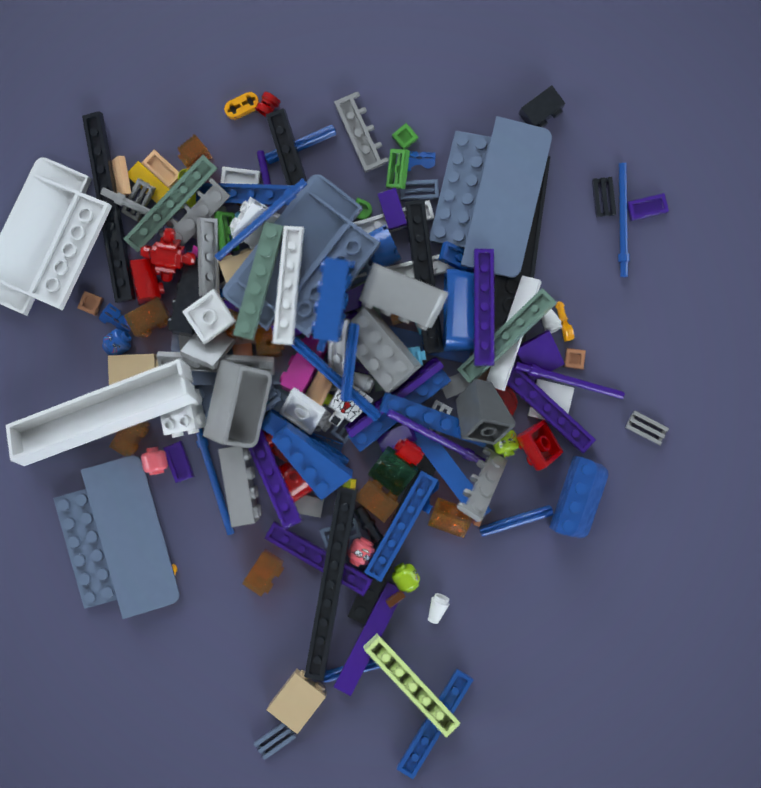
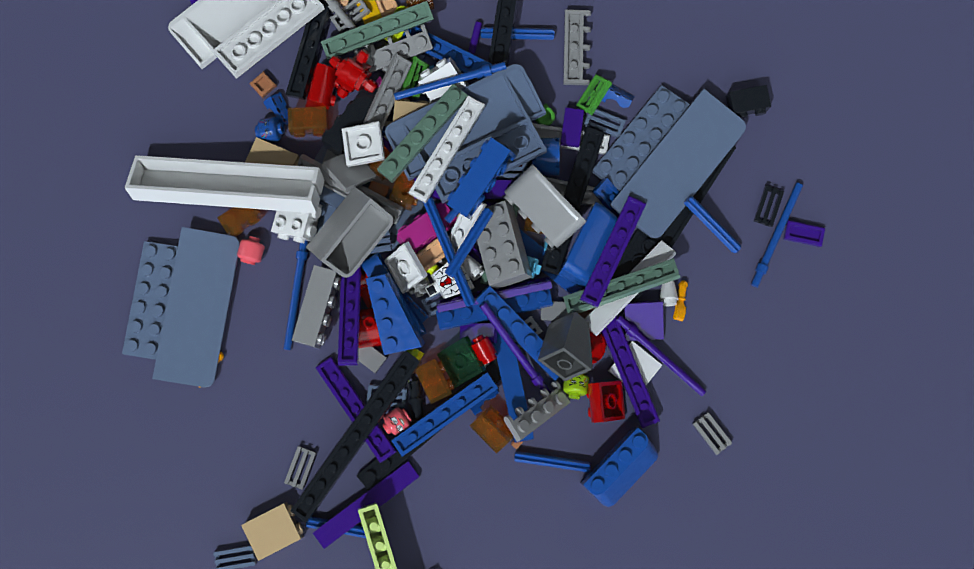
camera: 20 degrees right, 5 degrees down
(178, 462) = (272, 262): dark purple tile -> none
(240, 176) = (450, 35): white tile -> none
(263, 572) = (299, 398): clear orange brick -> none
(295, 649) = (294, 483): none -> light grey tile
(395, 598) = (407, 478): reddish brown tile -> none
(404, 136) = (614, 69): bright green tile -> none
(406, 577) = (426, 465): lime head -> none
(438, 606) = (442, 507): white cone -> none
(561, 238) = (712, 224): none -> blue axle
(574, 358) = (674, 339): nougat tile -> none

